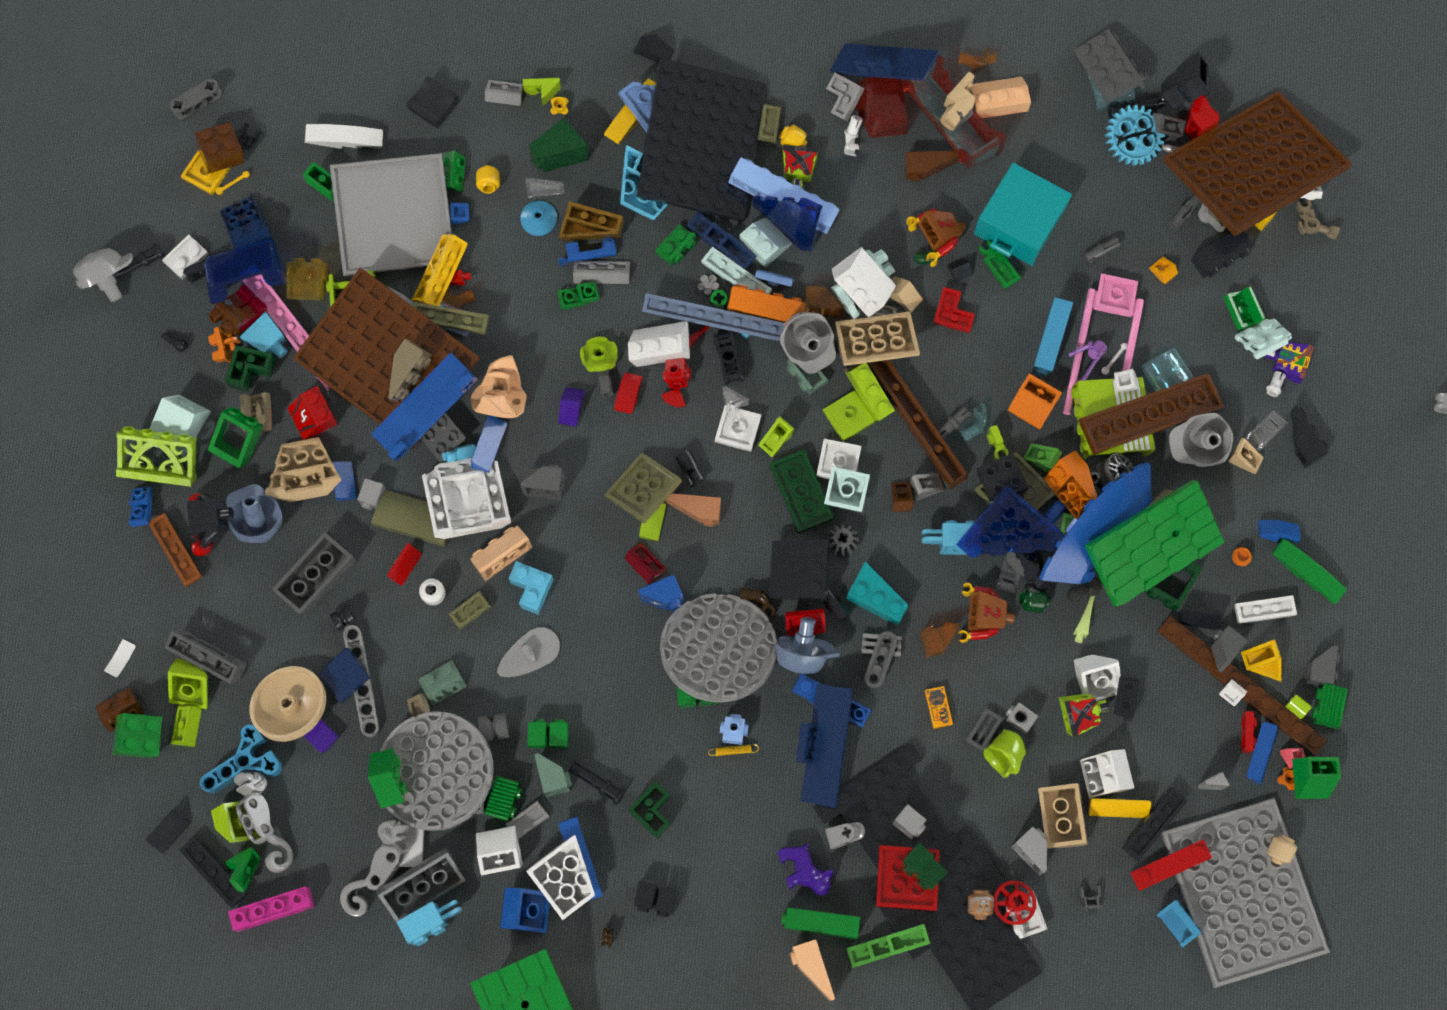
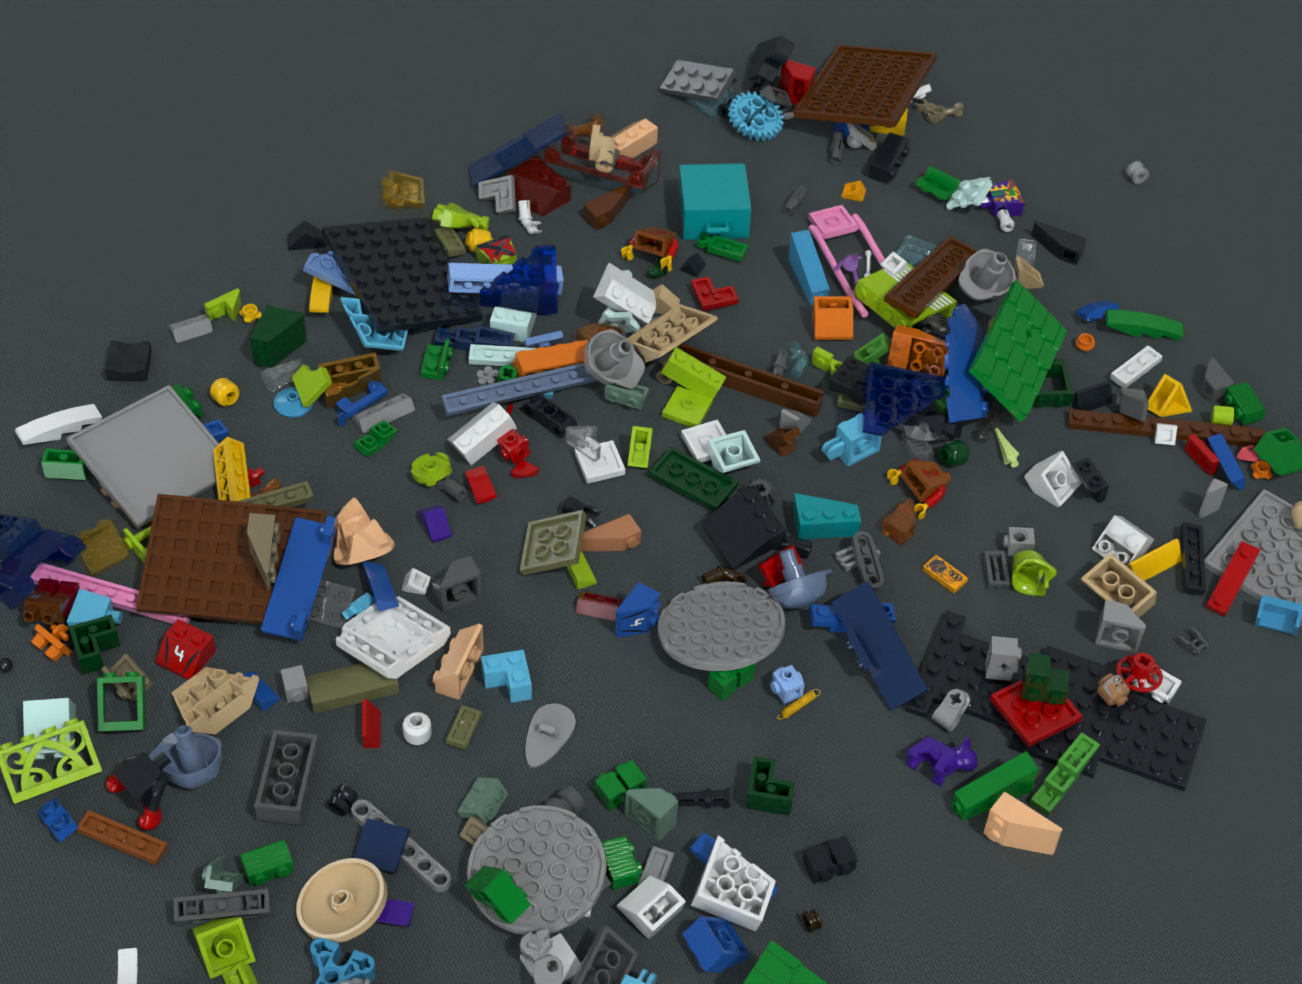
camera: 40 degrees left, 25 degrees down
(218, 632) = (221, 880): none -> sand green bracket
(259, 636) = (267, 863): none -> green brick
(521, 454) = (416, 582): none -> white slope
(555, 214) = (311, 383): none -> lime tile
(765, 44) = (402, 190): none -> clear yellow plate
(788, 101) = (456, 217): none -> lime hips
(1081, 712) = (1064, 509): torso -> none

